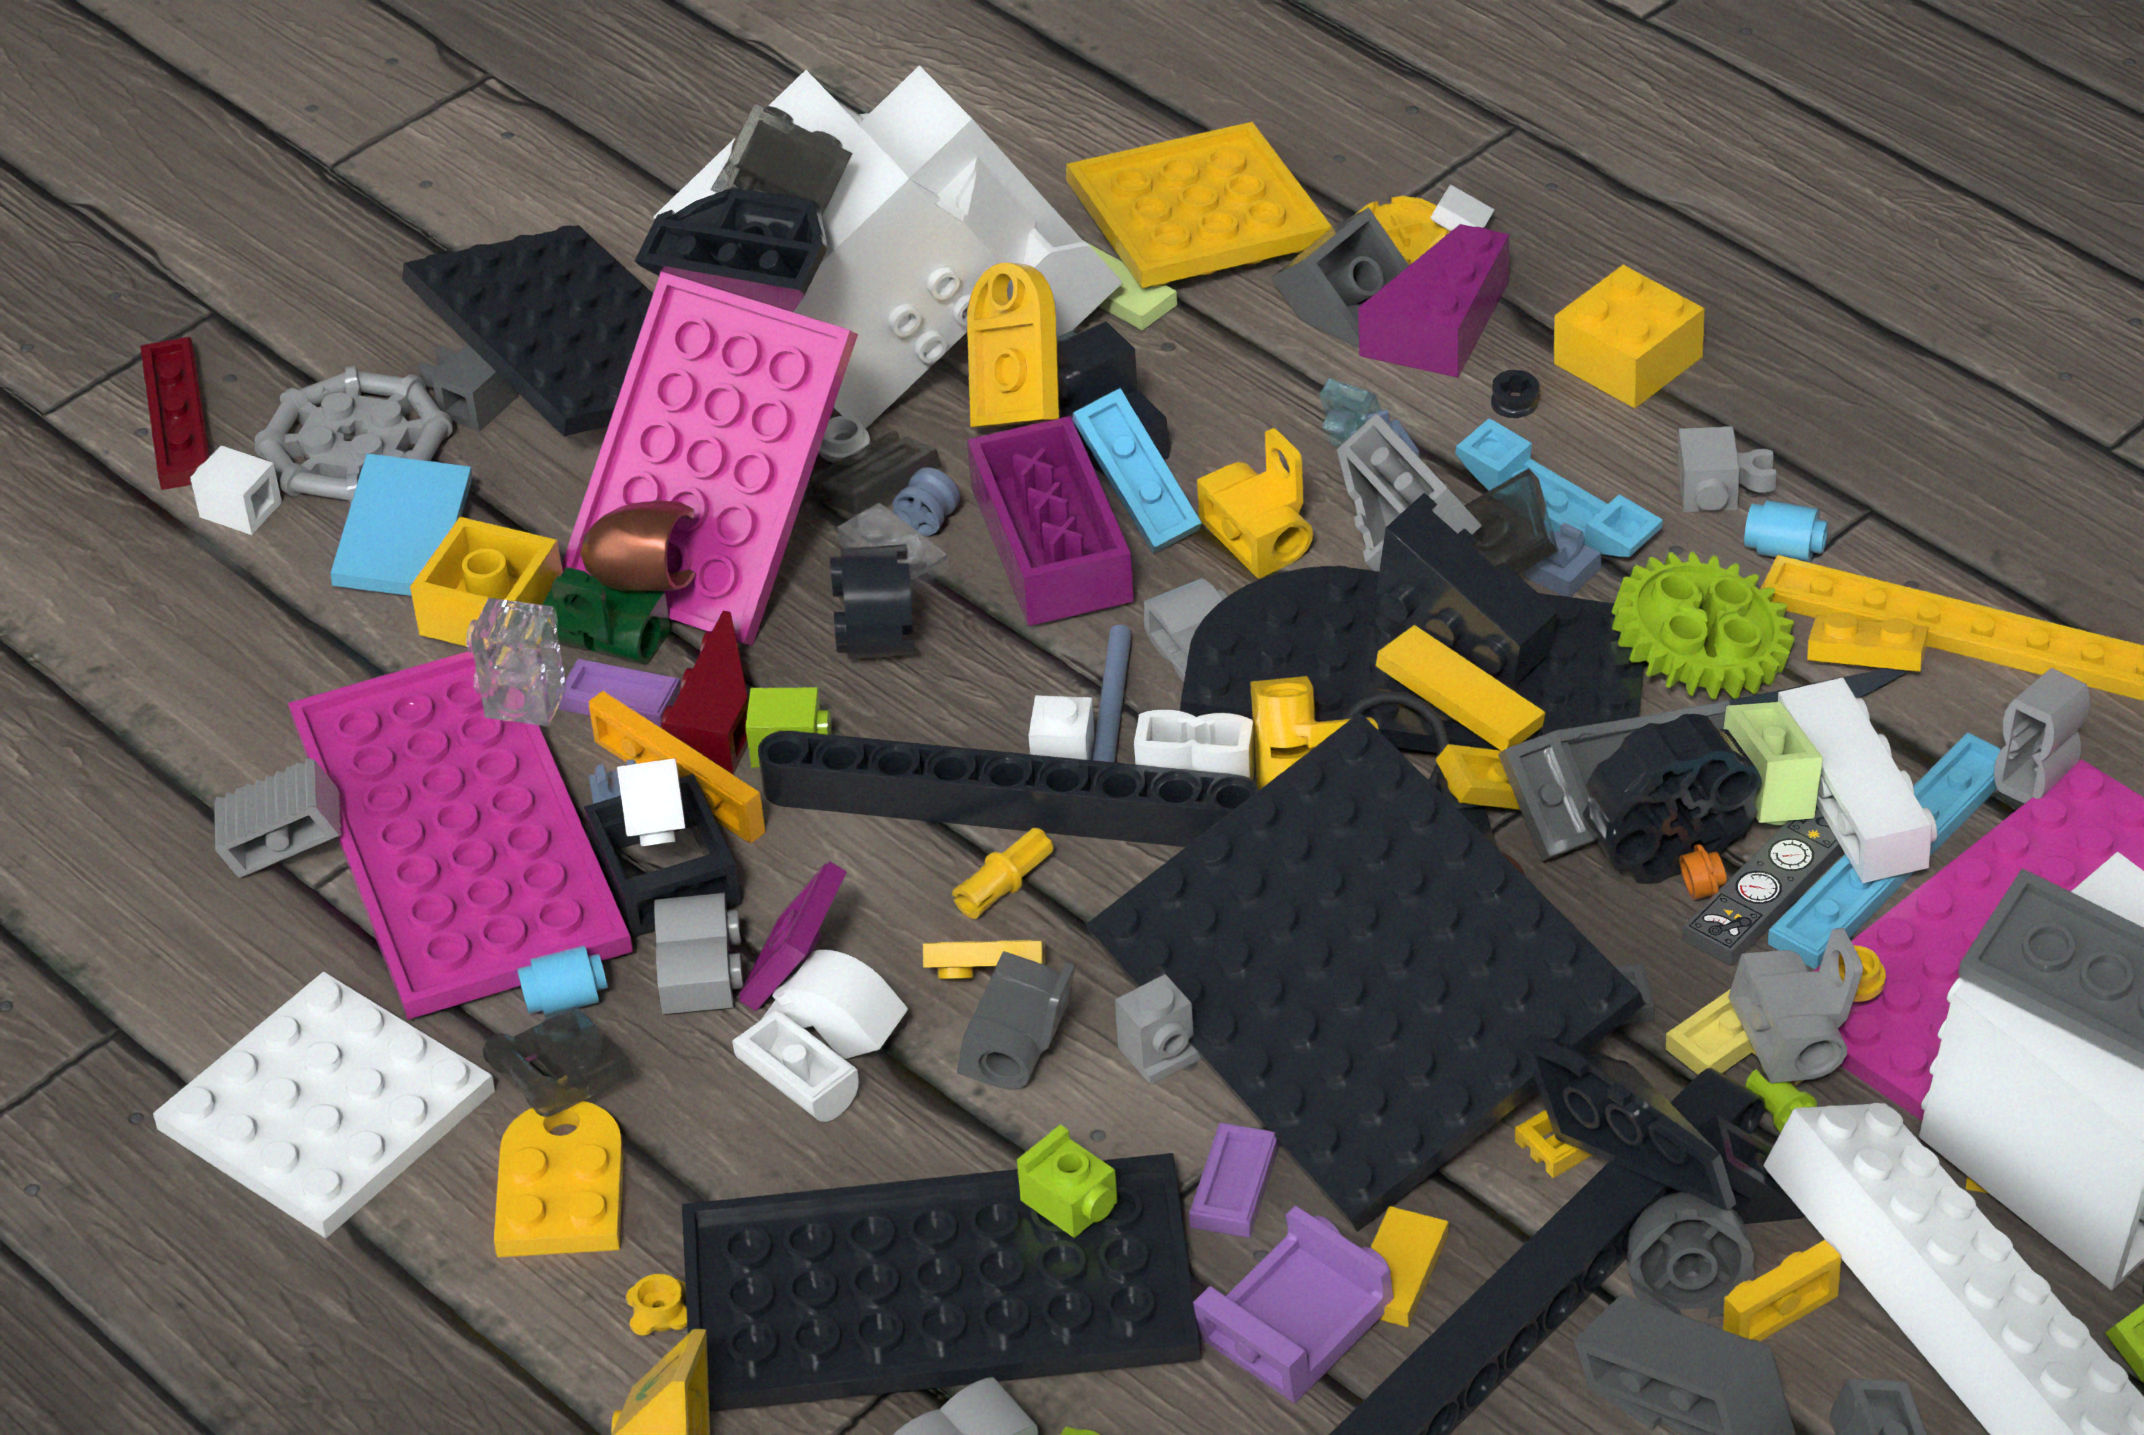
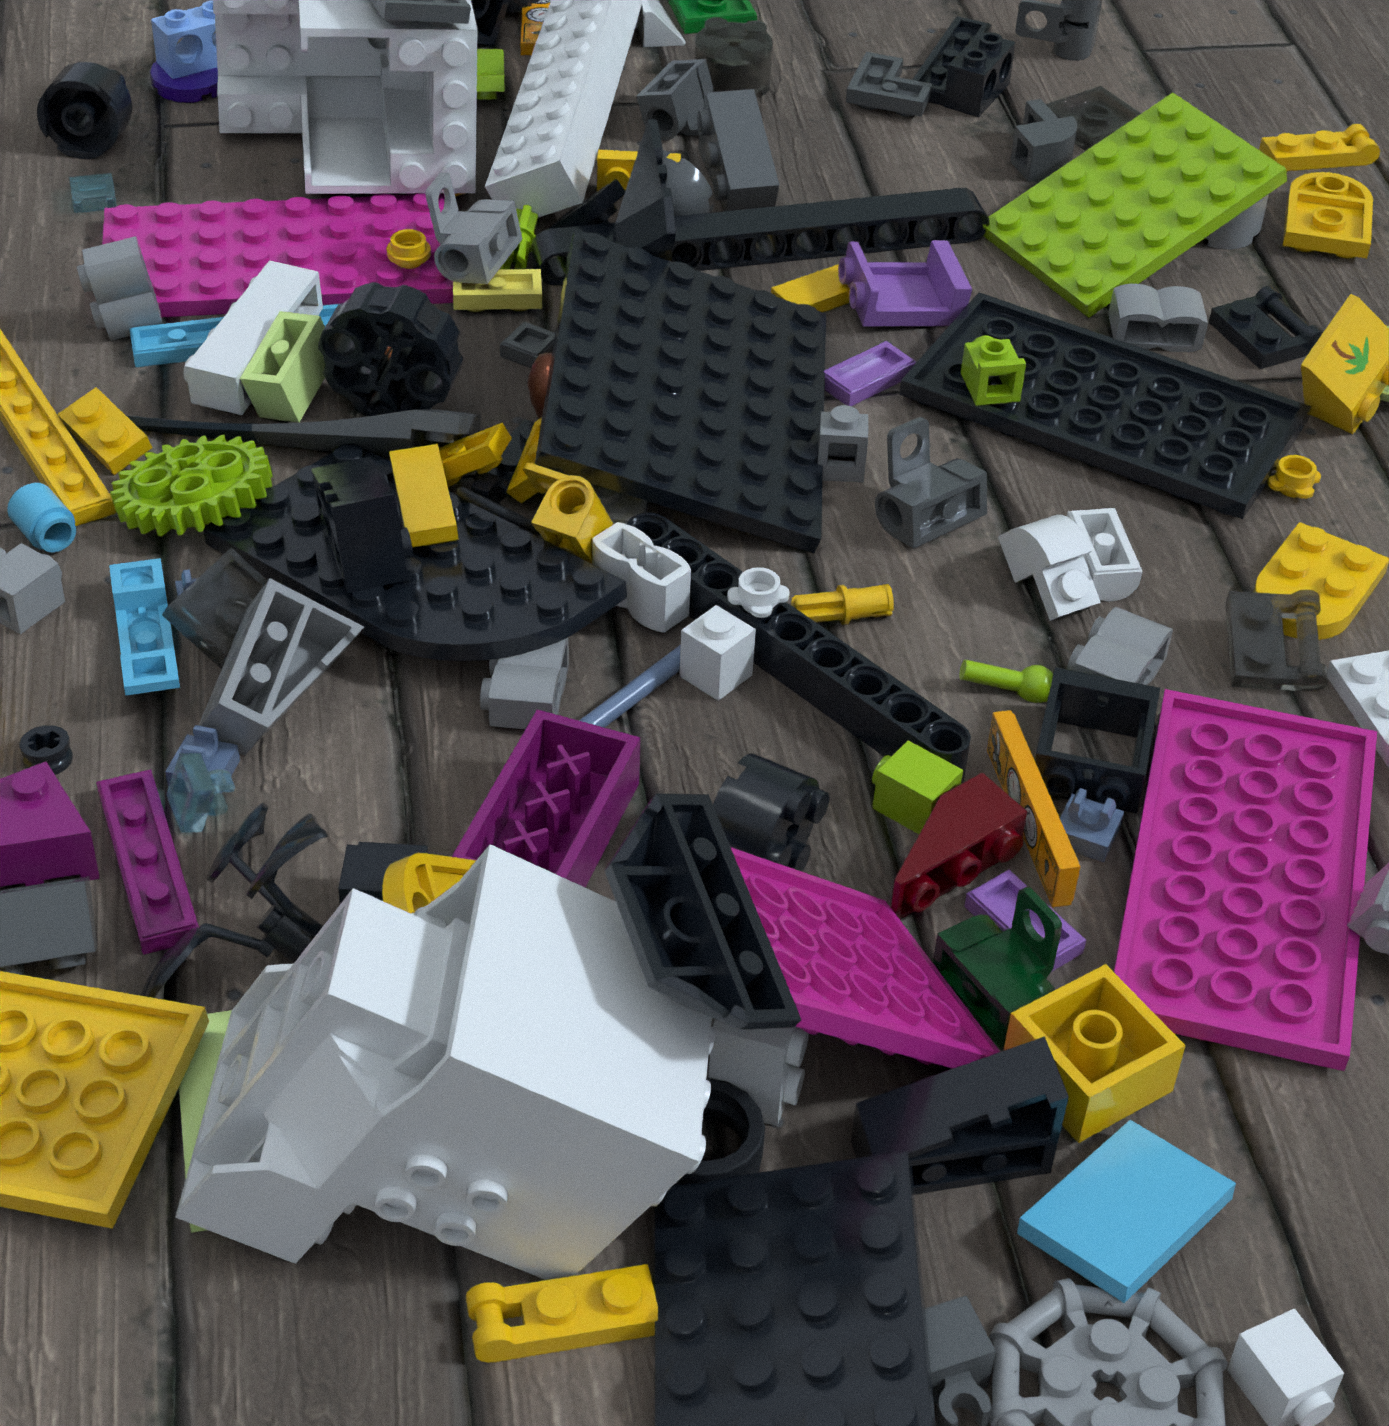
camera: 150 degrees left, 0 degrees up
(517, 661) = (1135, 888): clear brick -> none
(537, 490) = (971, 1122): none -> black wedge
(562, 981) = (1238, 686): medium azure brick -> none
(631, 545) = (948, 932): copper piece -> none
(652, 801) = (1095, 717): white slope -> none
(765, 906) = (1030, 684): none -> lime bar
(783, 159) = (613, 947): clear smoke brick -> none
(792, 936) = (1047, 601): magenta plate -> none
(959, 957) = (910, 551): yellow plate -> none
(1055, 761) = (758, 592): none -> white plate
(1136, 471) = (436, 812): medium azure plate -> none
(1162, 360) = (283, 925): none -> black plant
(1258, 512) = (373, 744): yellow piece -> none
(1311, 362) = (146, 860): none -> magenta tile

